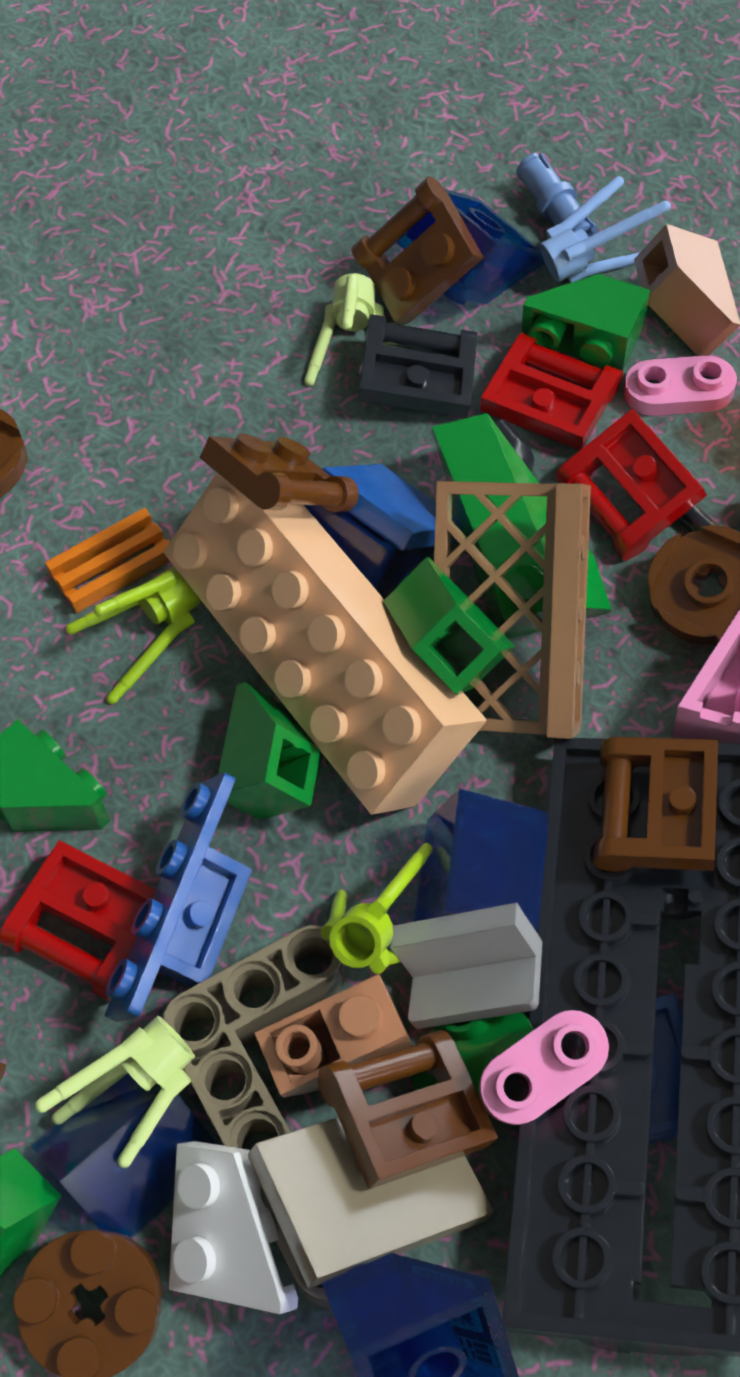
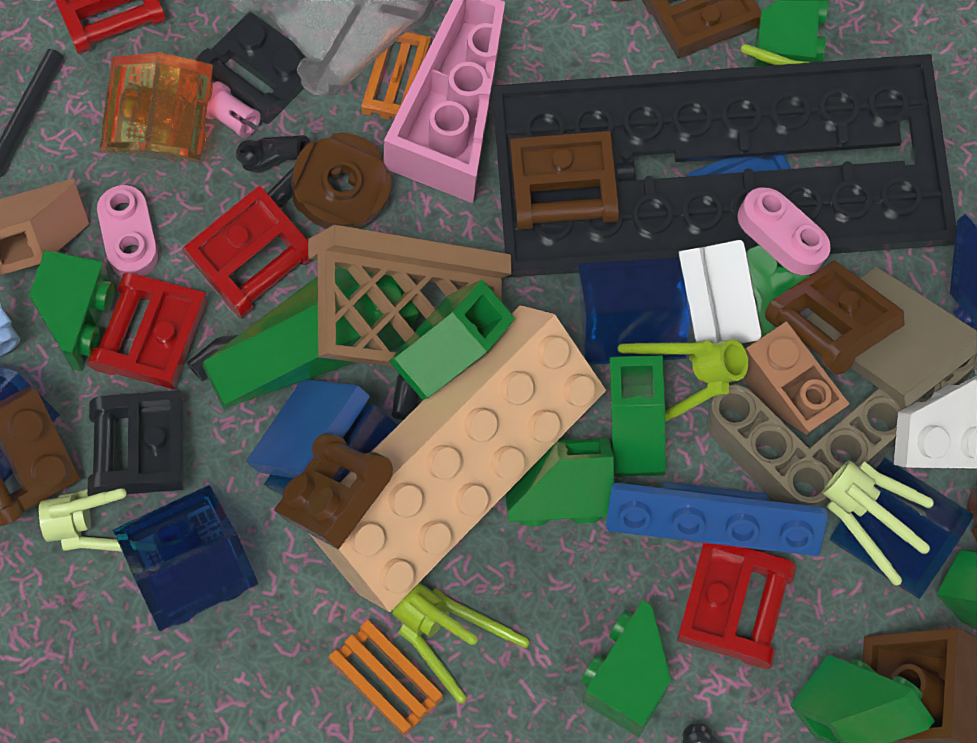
camera: 105 degrees left, 5 degrees up
(282, 386) = (185, 558): none -> clear blue slope
(336, 847) = (638, 416): none -> green slope

